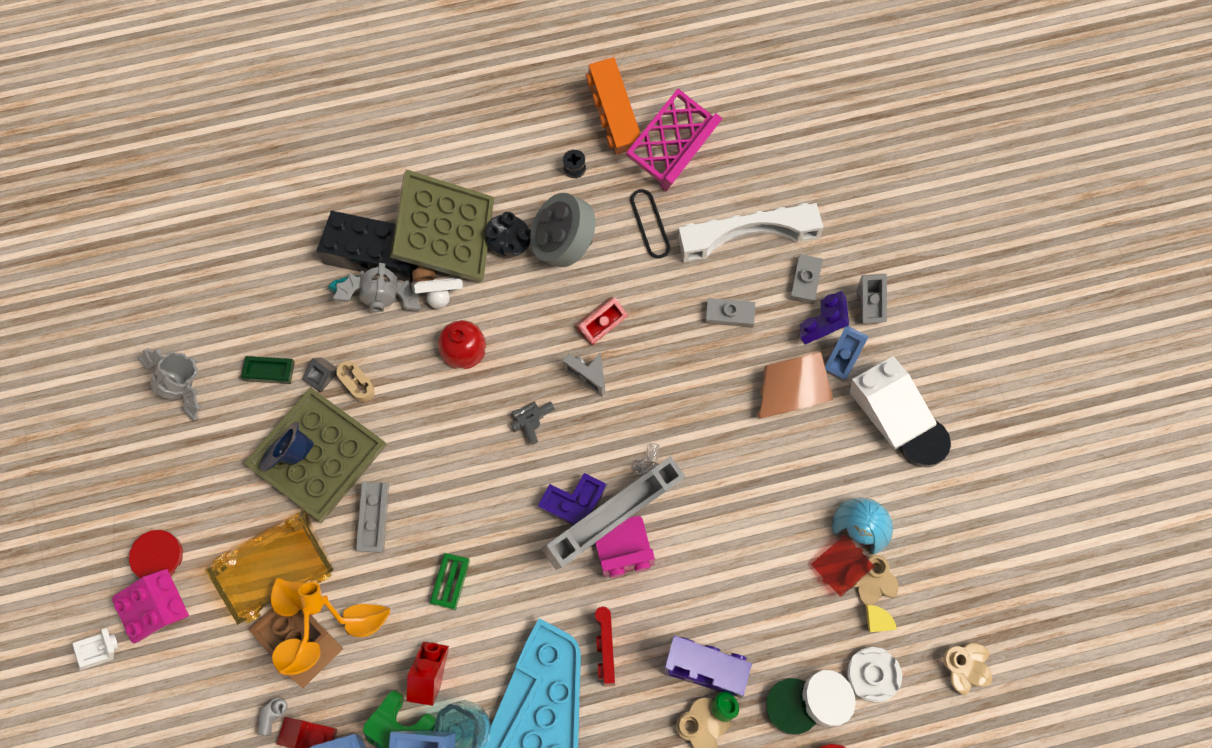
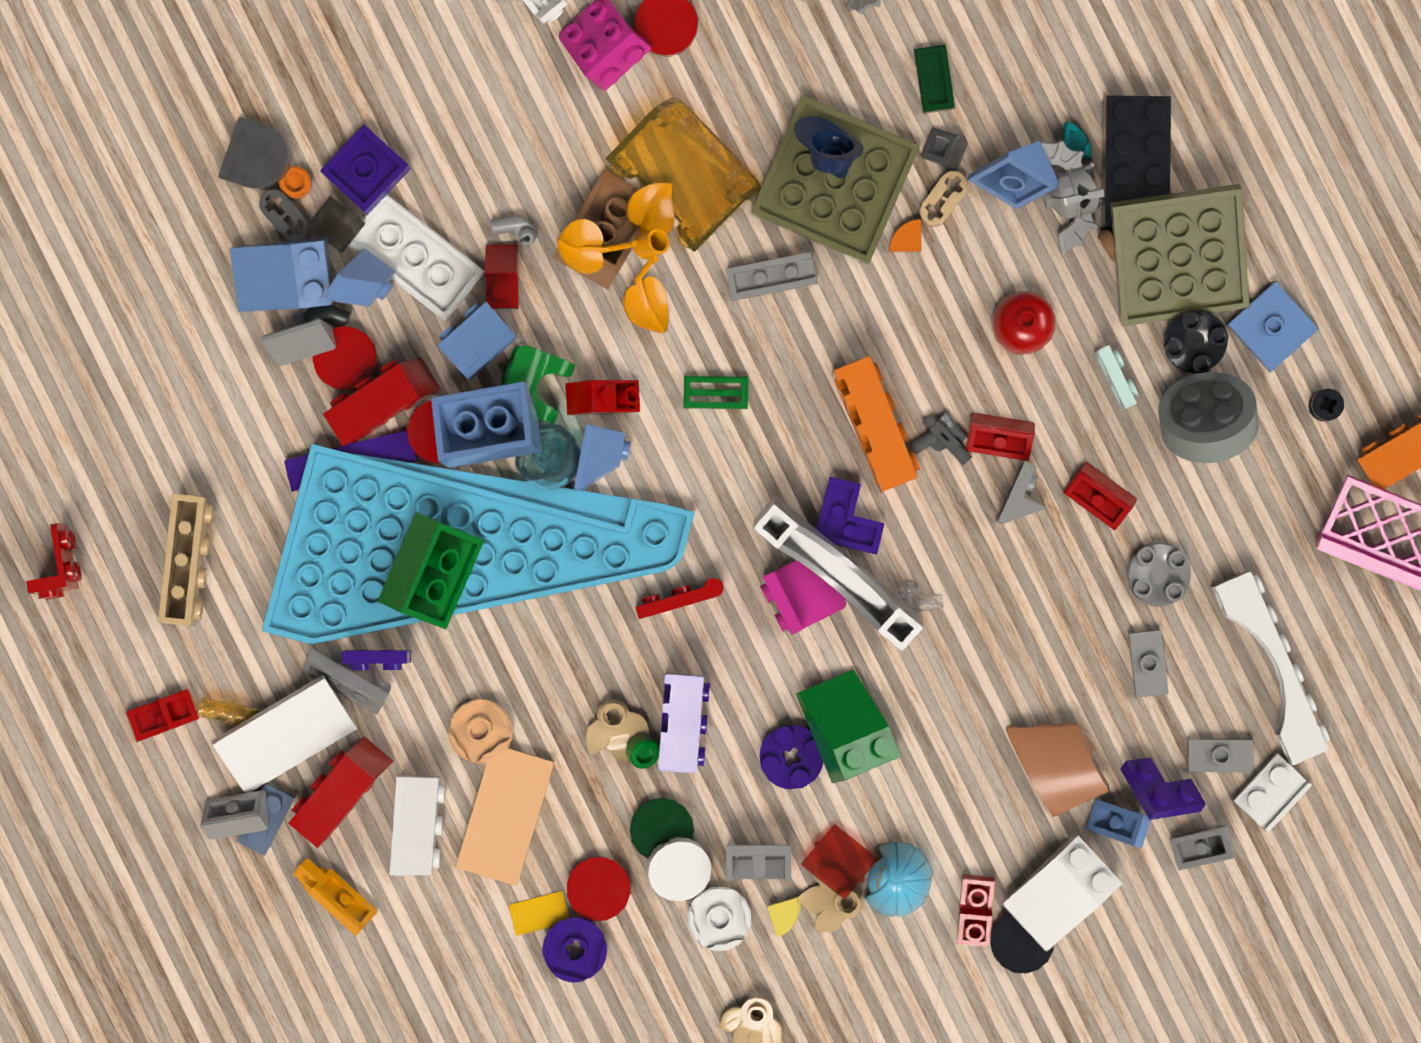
camera: 70 degrees right, 20 degrees up
(353, 321) = (1017, 176): none -> medium blue slope
(376, 412) = (907, 238): none -> orange tile
(438, 293) = (1092, 270): white tile -> none
(472, 684) = (600, 455): none -> medium blue slope
(504, 462) = (875, 424): none -> orange wedge
(512, 187) = (1272, 327): none -> medium blue plate
(520, 290) = (1123, 389): none -> light aqua plate
(540, 378) = (1000, 436): none -> red slope
(659, 221) = (1266, 541): black piece -> none
(667, 291) = (1159, 574): none -> light grey dish
(737, 534) = (847, 727): none -> green slope
(766, 582) = (773, 763): none -> dark purple plate
(834, 629) = (758, 862): none -> light grey window
(839, 251) = (1272, 792): none -> white plate
(895, 471) = (975, 910): none -> slope

